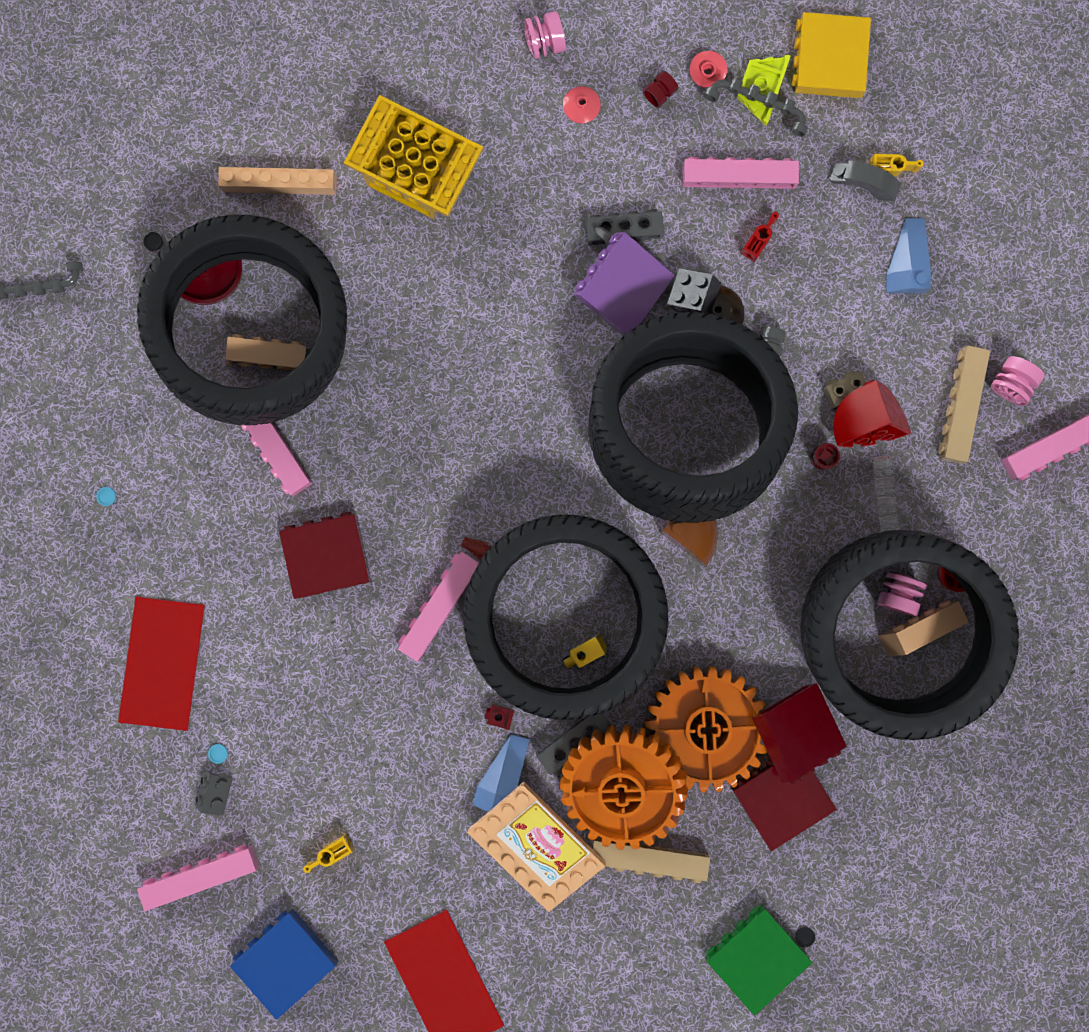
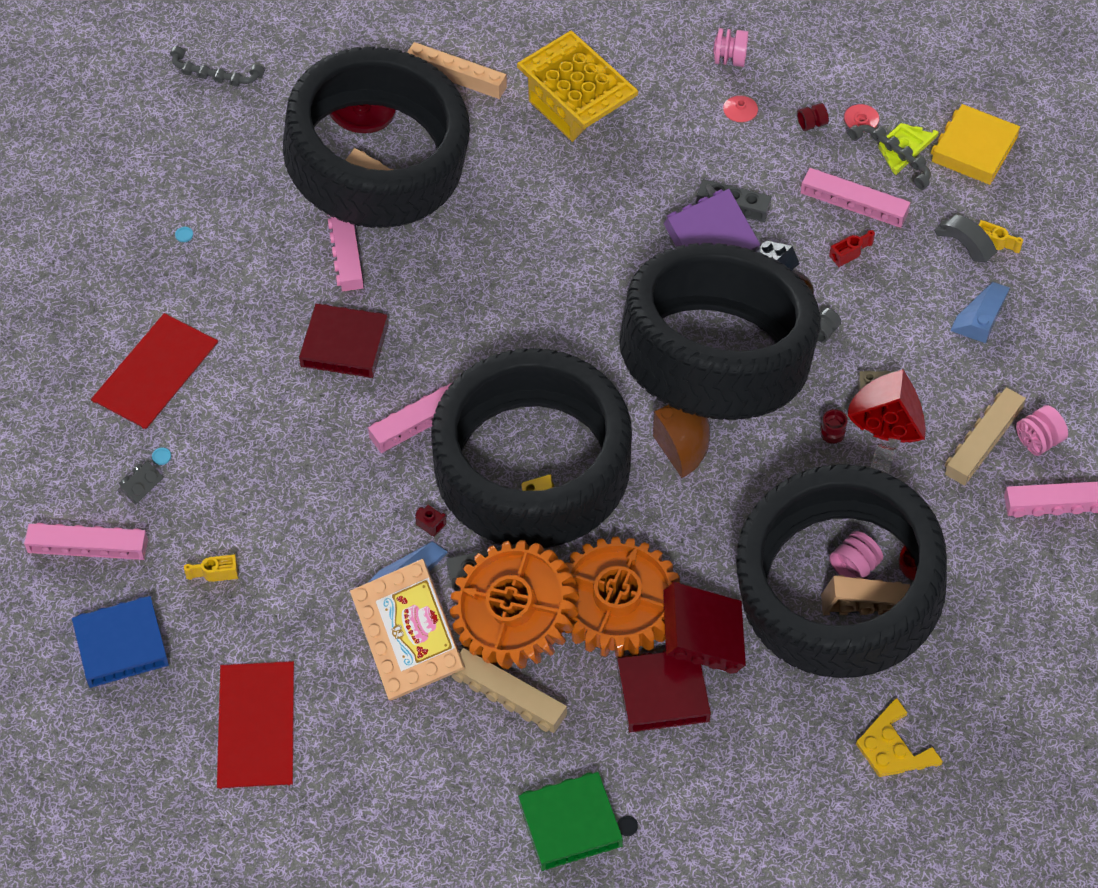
camera: 25 degrees right, 30 degrees down
(994, 768) = (887, 750): none -> yellow wing

